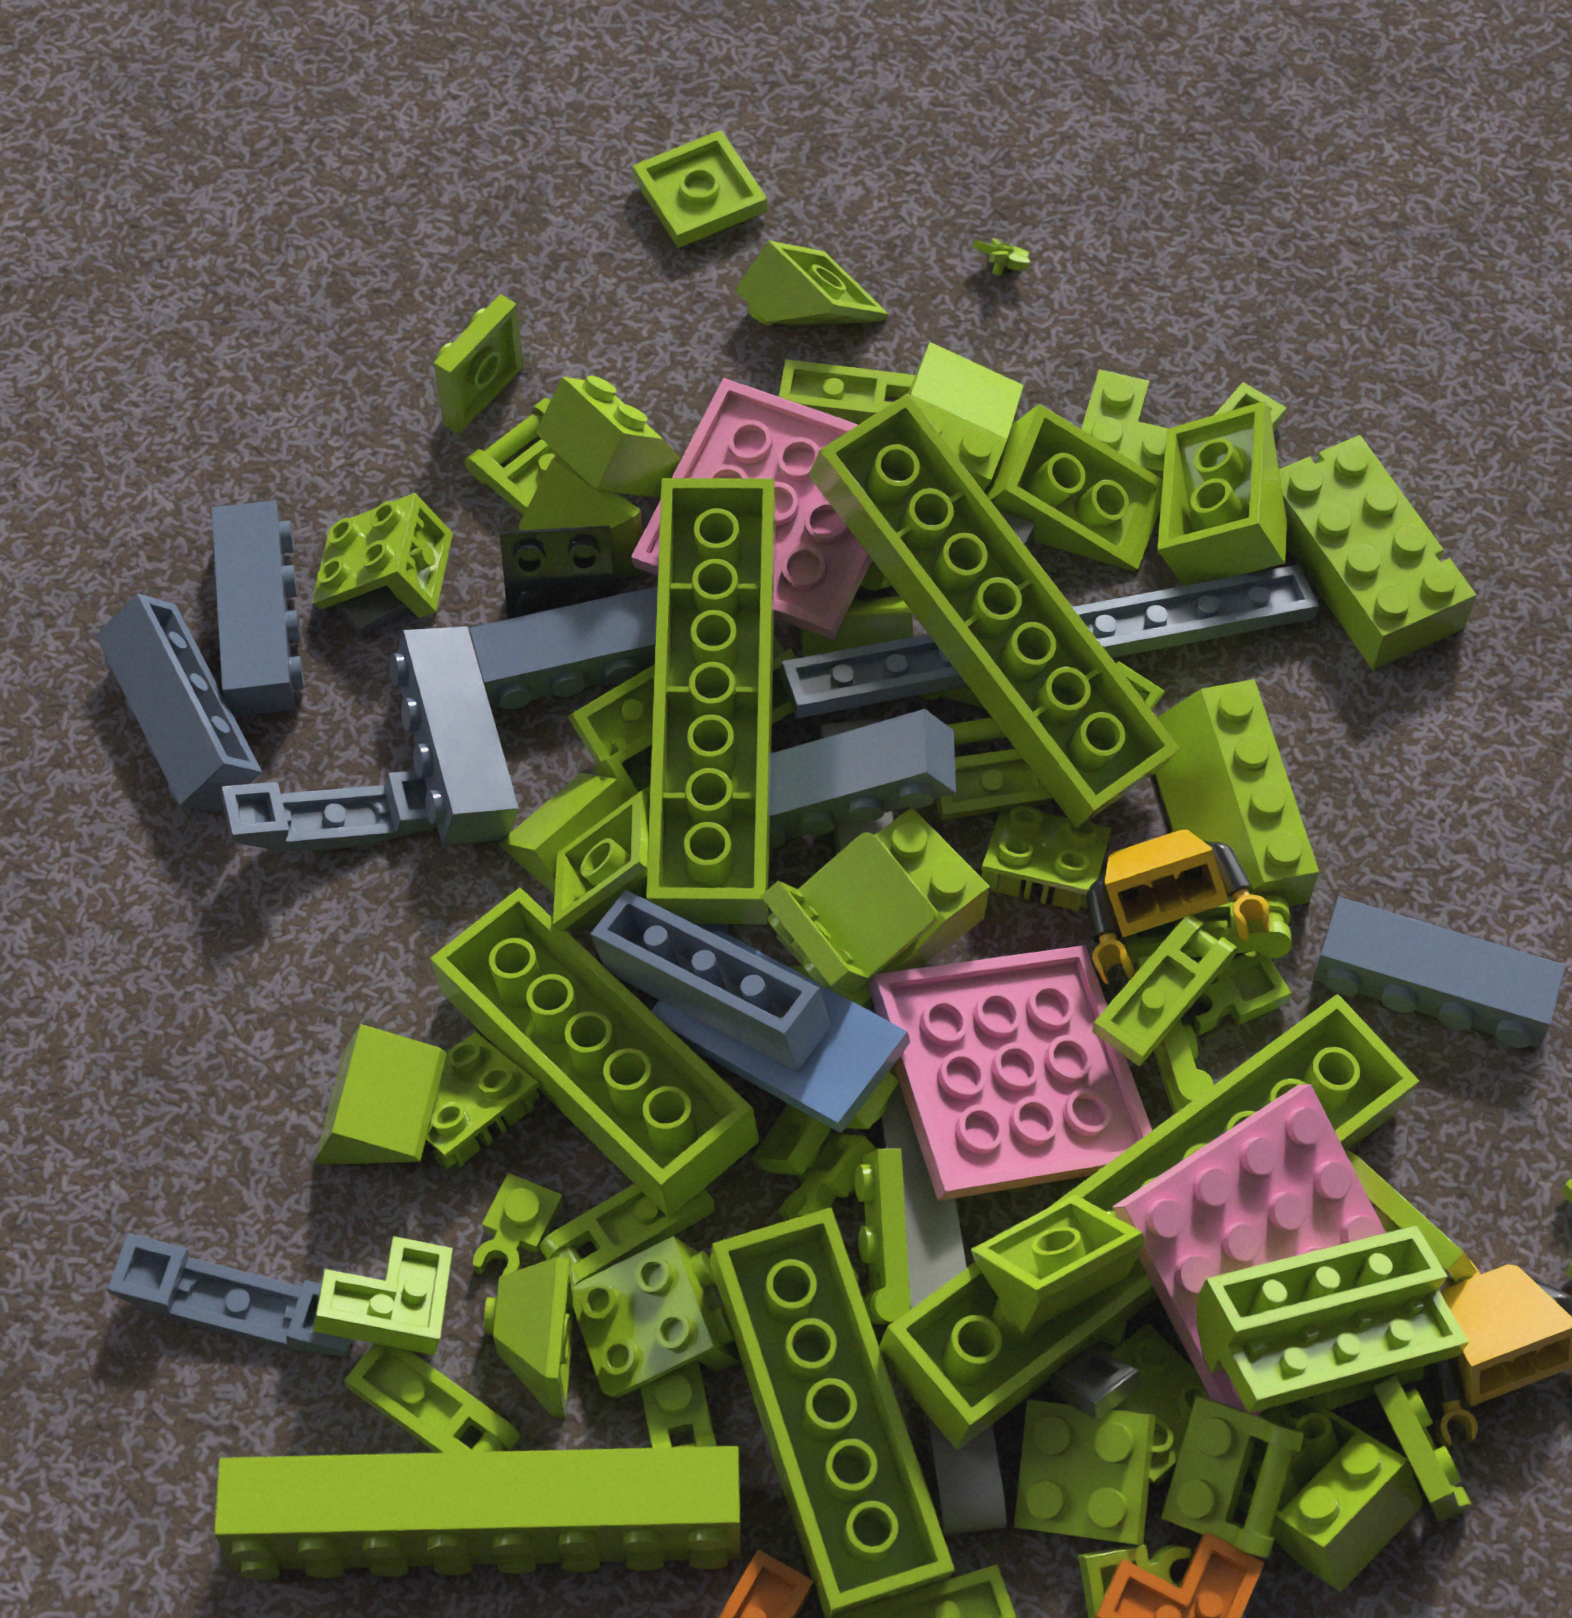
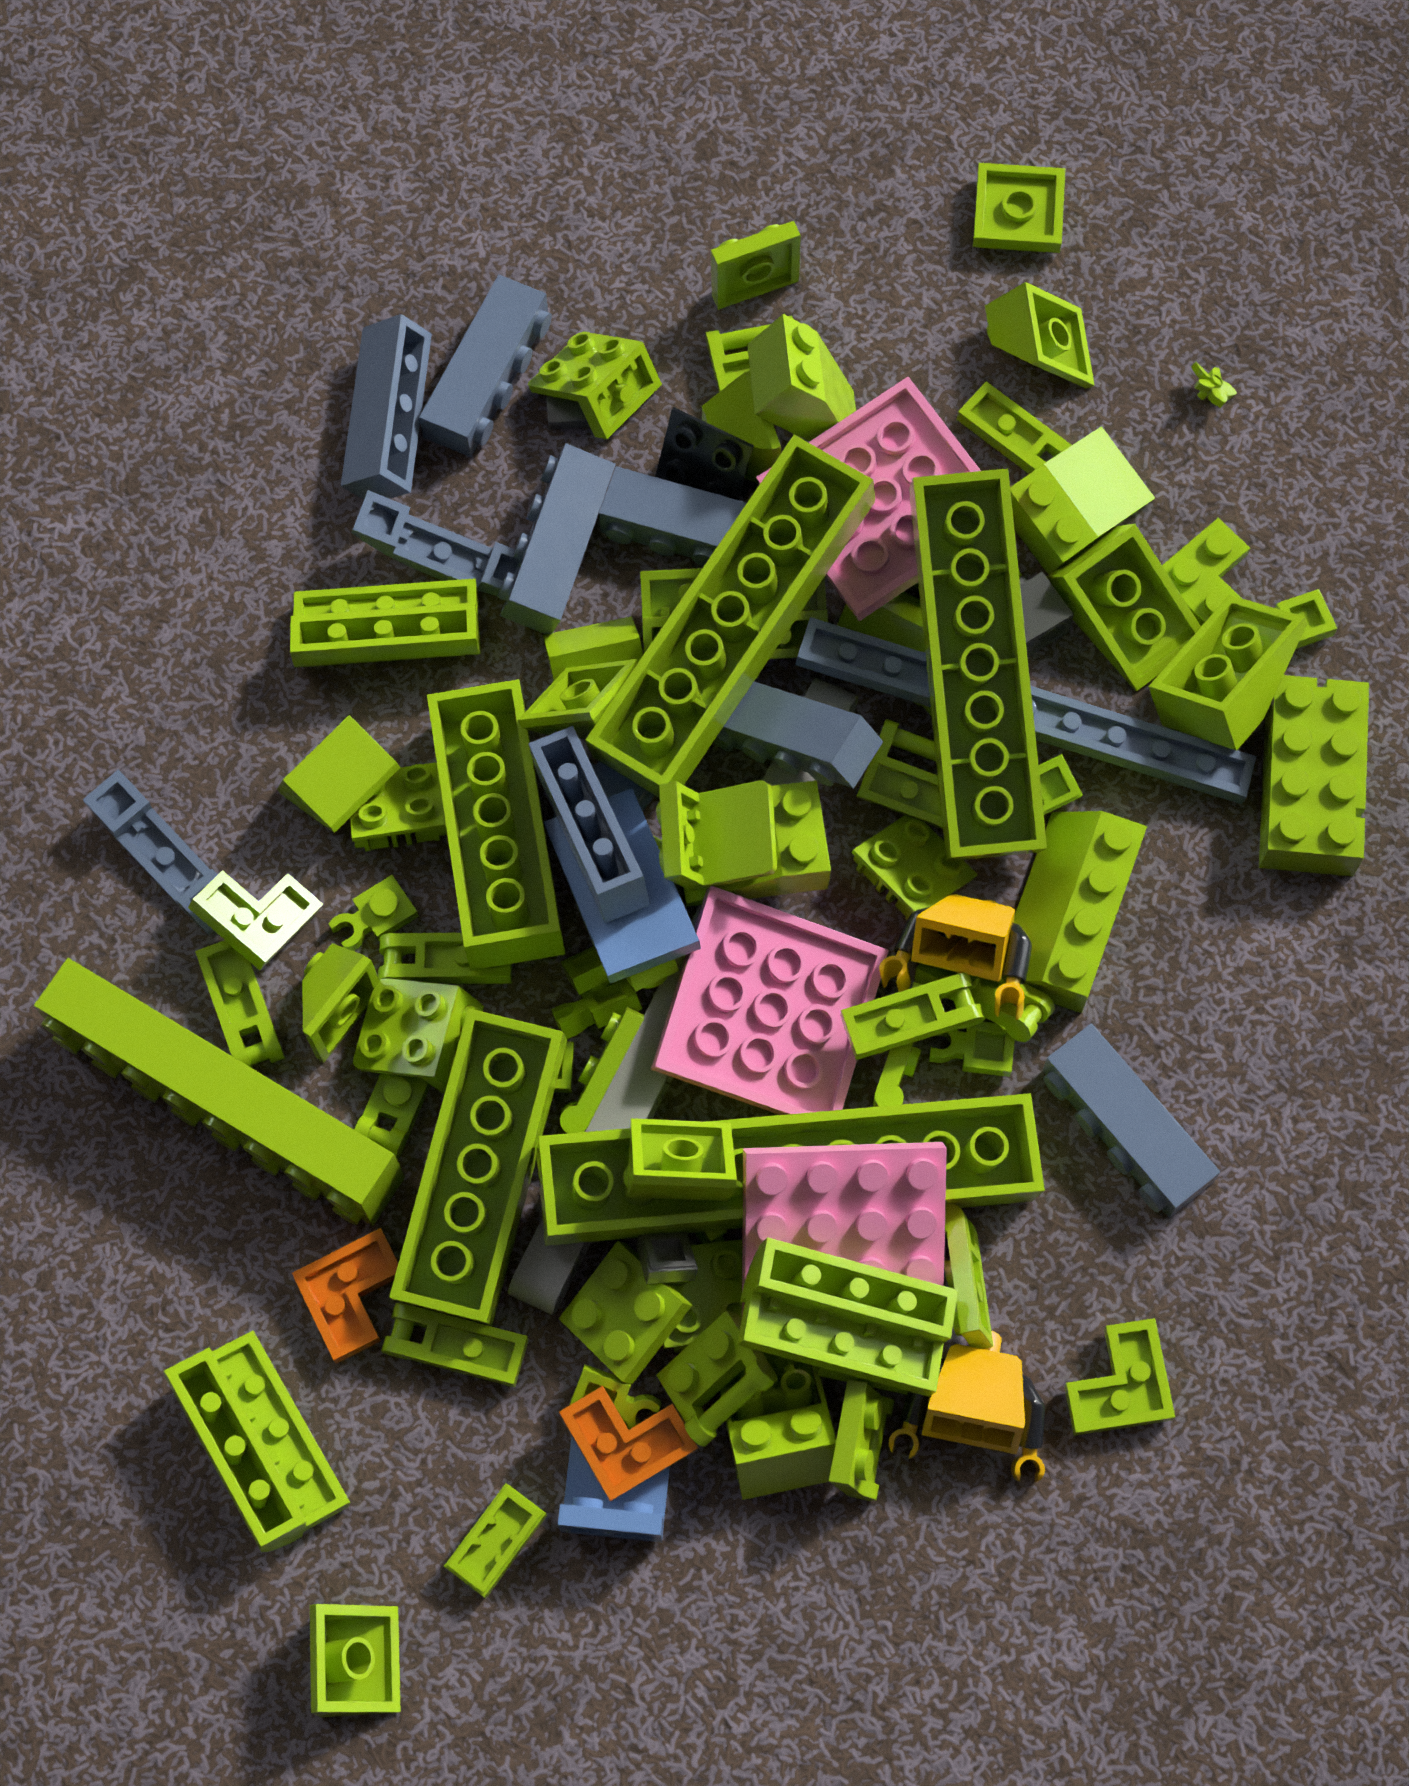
camera: 35 degrees right, 10 degrees up
(324, 918) = (385, 623): none -> lime brick

